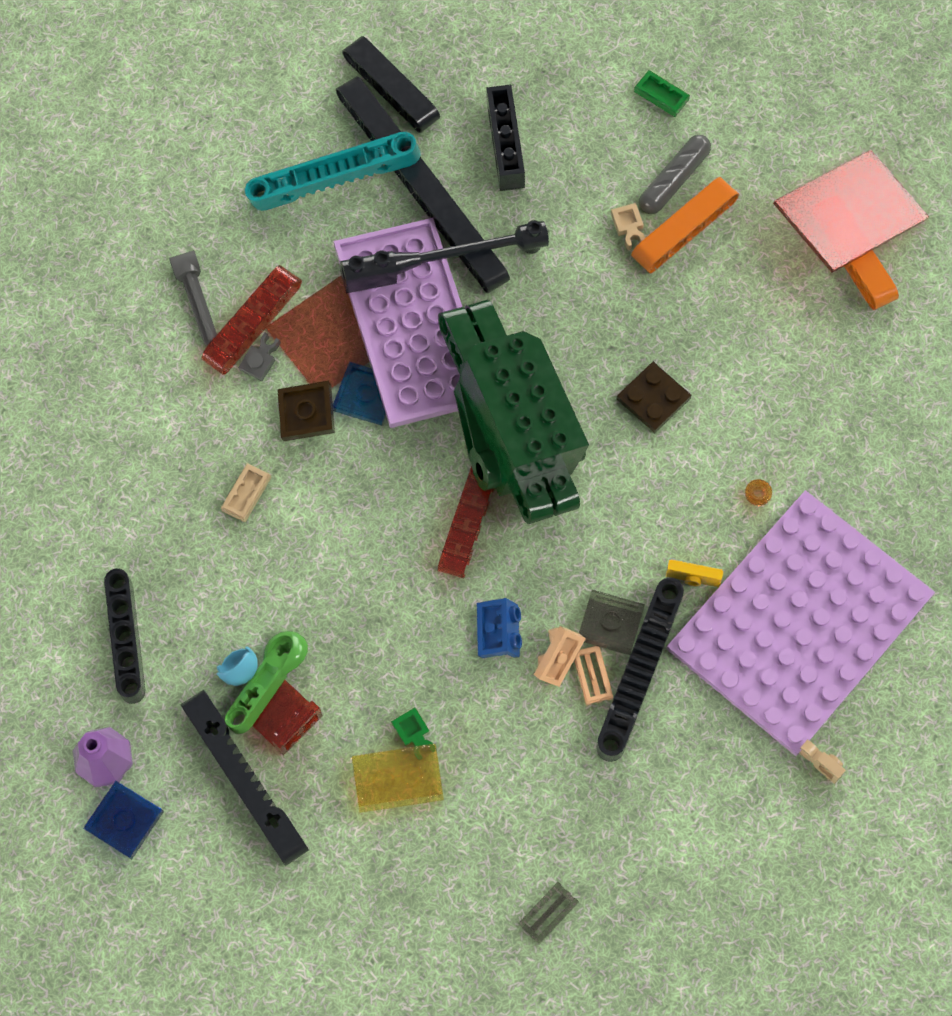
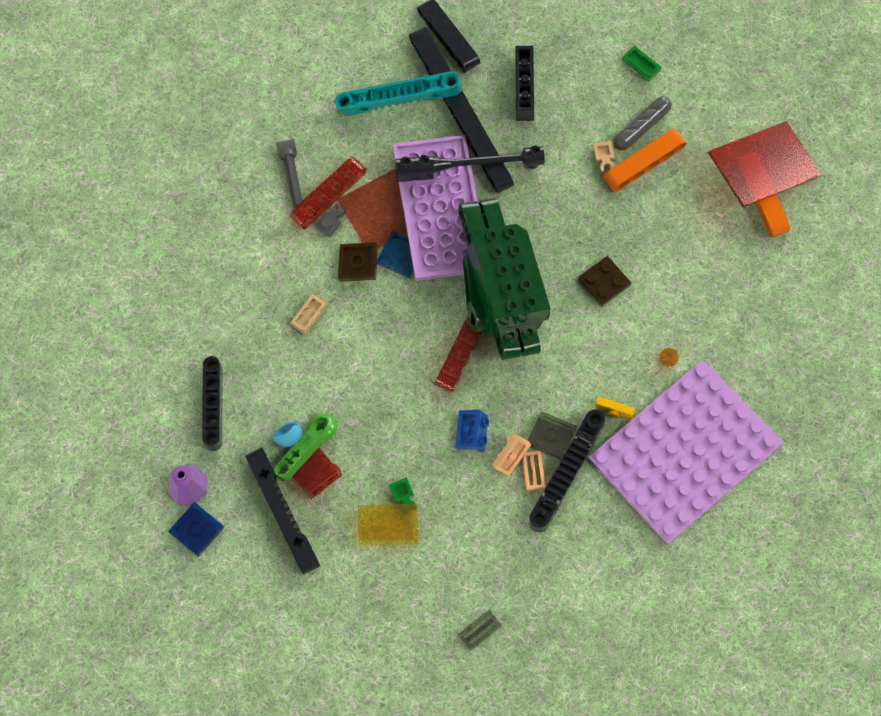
camera: 10 degrees right, 0 degrees up
(827, 764) = (689, 553): tan plate -> none

